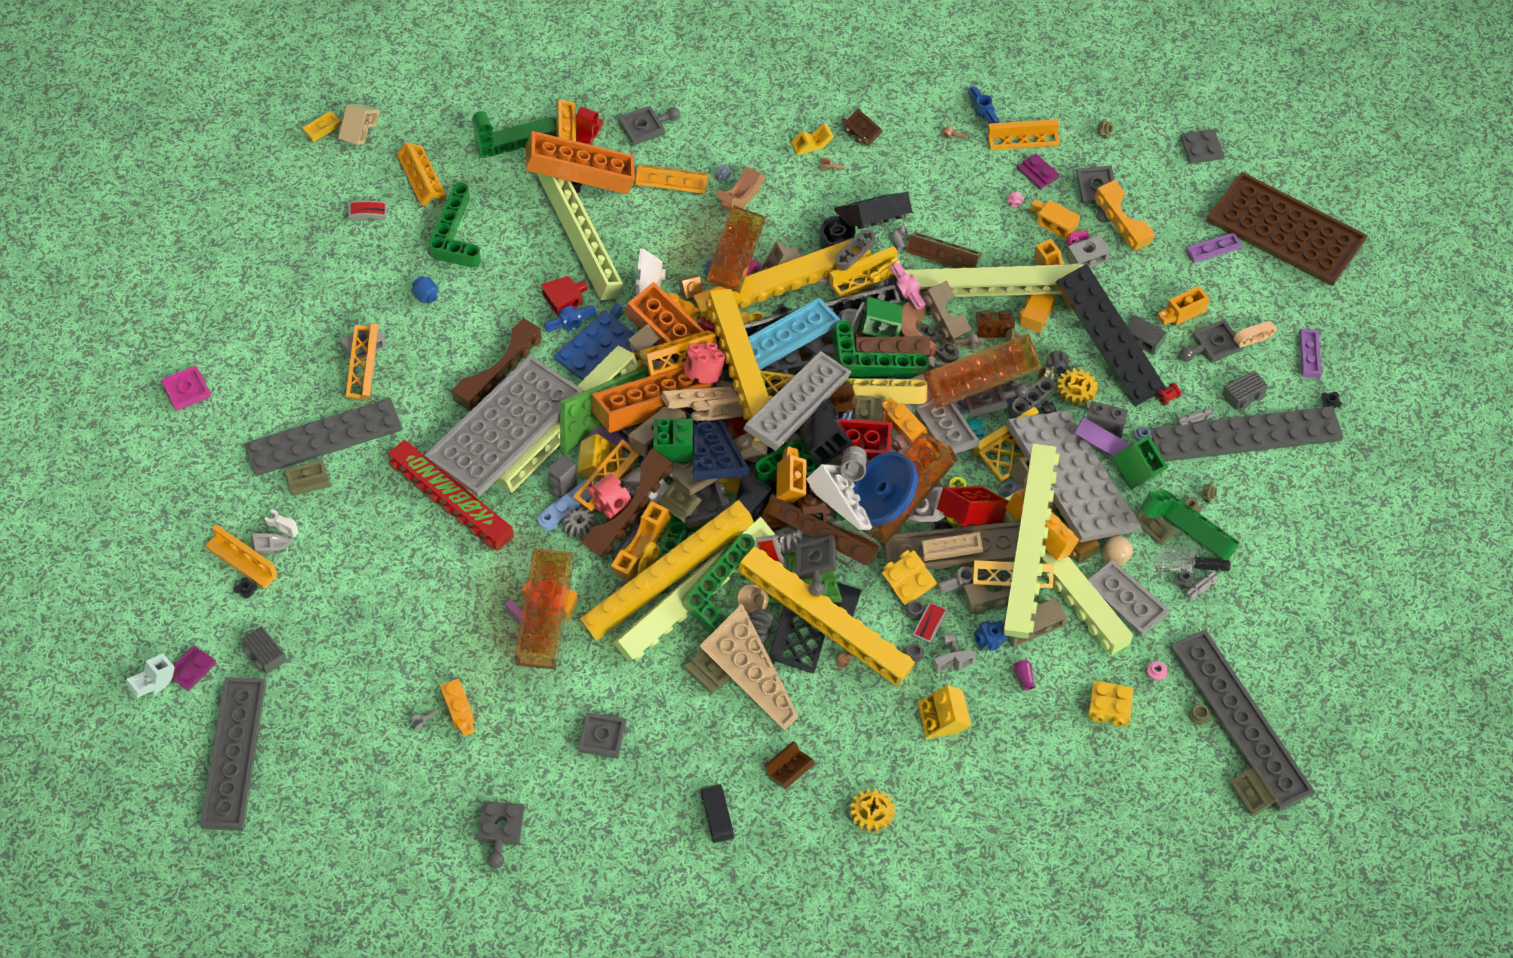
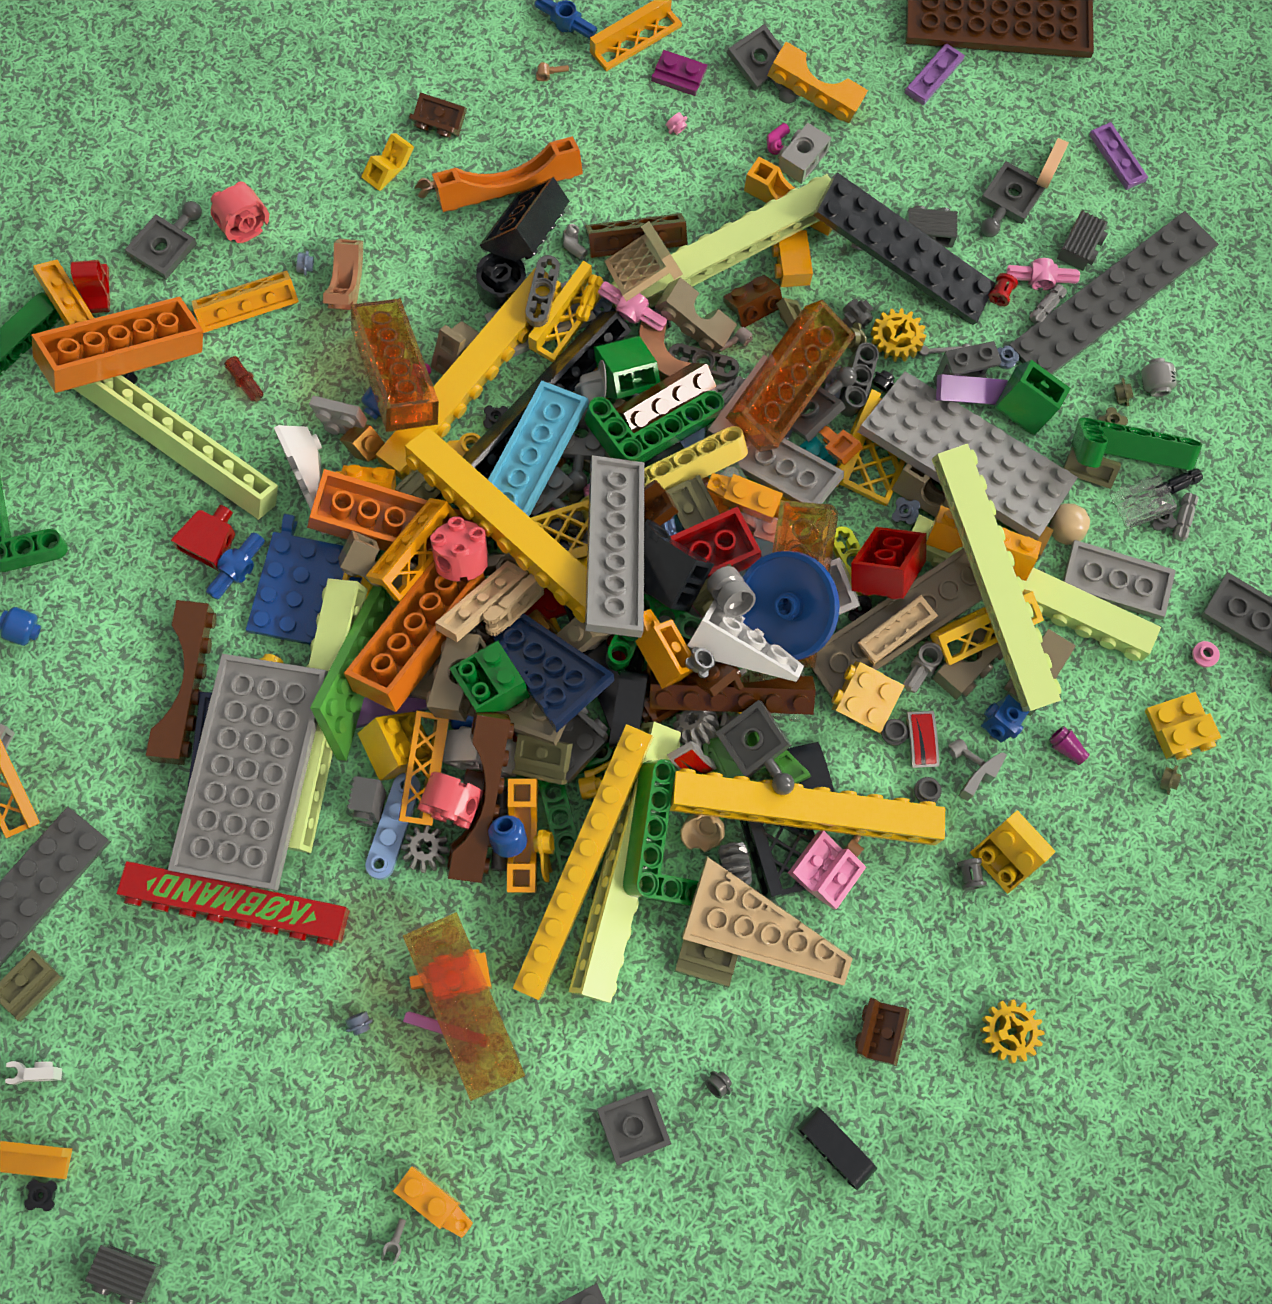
camera: 35 degrees left, 15 degrees up
(268, 543) = (33, 1111): light grey plate -> none
(479, 595) = (358, 1023): none -> sand blue plate
(630, 533) = (507, 836): none -> blue head
(643, 220) = (244, 379): none -> clear red axle
(669, 741) = (719, 1084): none -> dark grey plate
(683, 262) = (337, 416): none -> light grey plate
(700, 126) = (239, 212): none -> coral brick
(707, 325) = (421, 488): red bush -> none
(807, 489) = (700, 661): none -> dark grey plate
(817, 661) = (827, 870): none -> bright pink slope
(846, 173) = (462, 188): none -> orange arch
(908, 712) = (977, 882): none -> dark grey bush
(940, 262) = (655, 253): none -> tan fence
(989, 427) = (841, 445): none -> orange plate
(1055, 218) = (738, 124): light orange hinge -> none
(1079, 727) = (1170, 779): none -> olive plate
(1184, 307) = (956, 167): light orange hinge -> none
(1203, 397) = (1043, 274): none -> bright pink axle
(1240, 495) = (1159, 377): none -> light grey head
(1327, 402) = (1174, 208): black plate -> none

